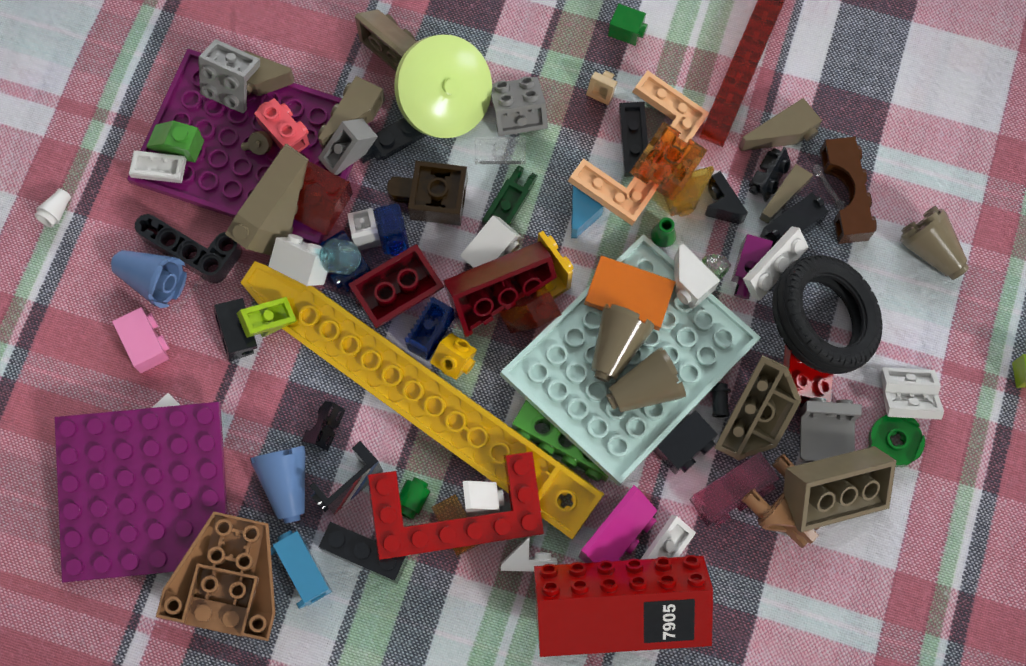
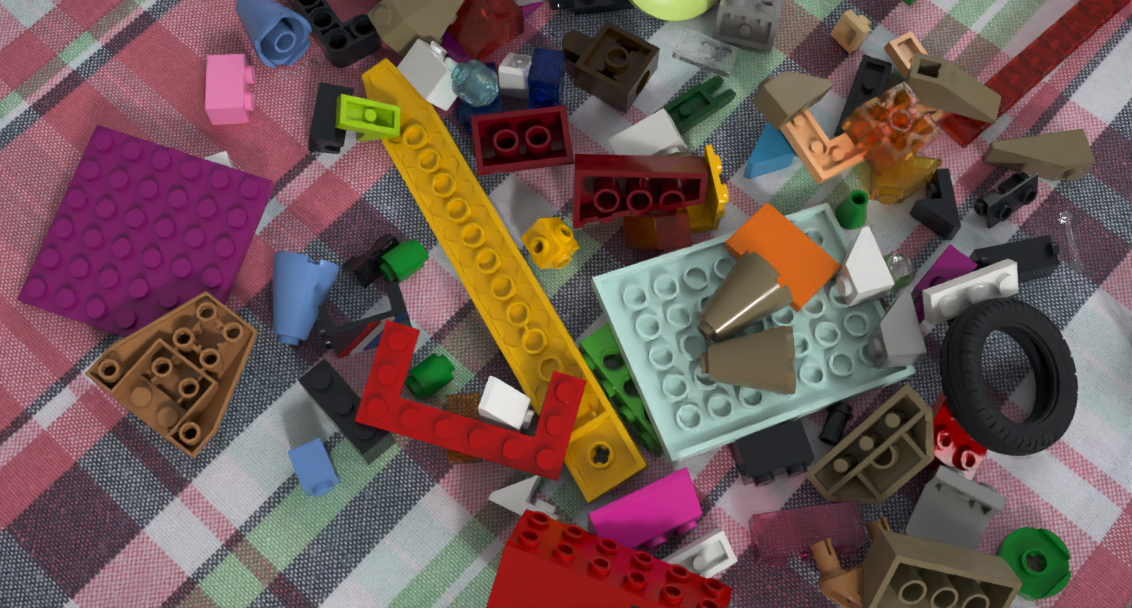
camera: 25 degrees right, 5 degrees down
(301, 568) = (271, 398): dark azure brick -> none
(348, 418) = (403, 261): none -> green brick
(361, 606) = (314, 468): none -> medium blue brick
(429, 328) = (539, 199): clear blue brick -> none
(583, 169) = (789, 96): none -> dark tan slope
(697, 109) = (951, 89): none -> dark tan slope
(737, 316) = (897, 336): none -> light grey slope
(791, 186) = (1023, 223): dark tan piece -> none
(842, 160) = (1101, 219): reddish brown arch -> none
(911, 393) = (1076, 516): white slope -> none

